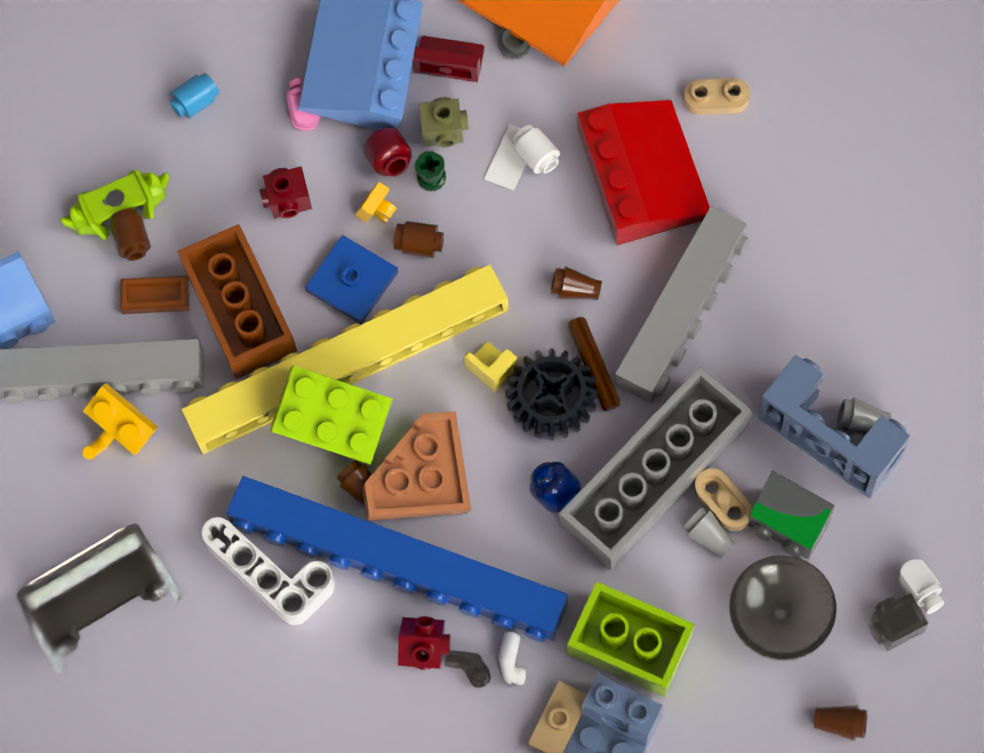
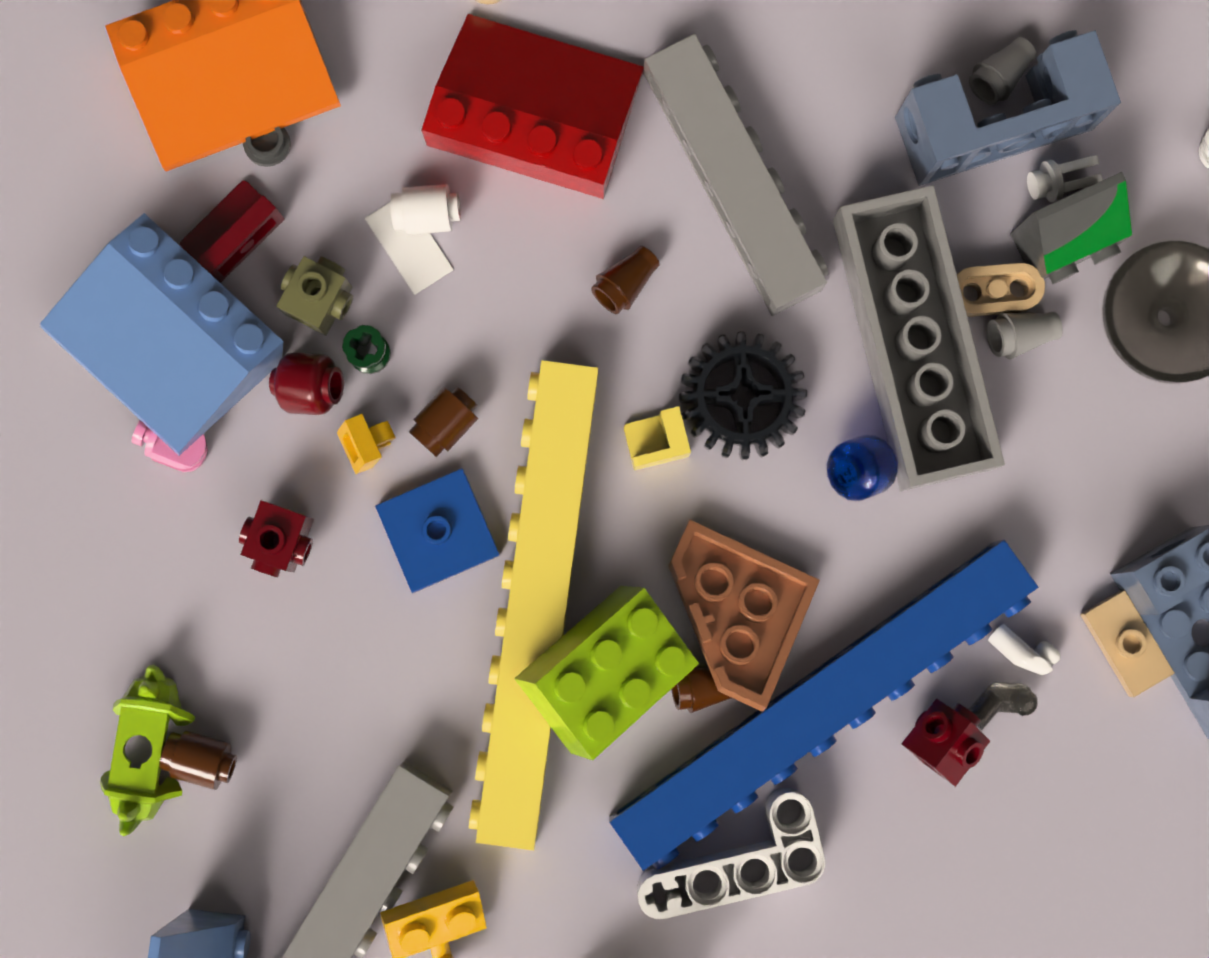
camera: 65 degrees left, 15 degrees up
(154, 294) = (294, 776): dark orange tile -> none
(193, 95) = (66, 567): dark azure brick -> none
(237, 301) = (377, 687): dark orange brick -> none
(591, 356) = (731, 321): reddish brown axle -> none
(630, 639) = (1100, 504): lime brick -> none
(809, 483) = (1049, 181): none -> white arm

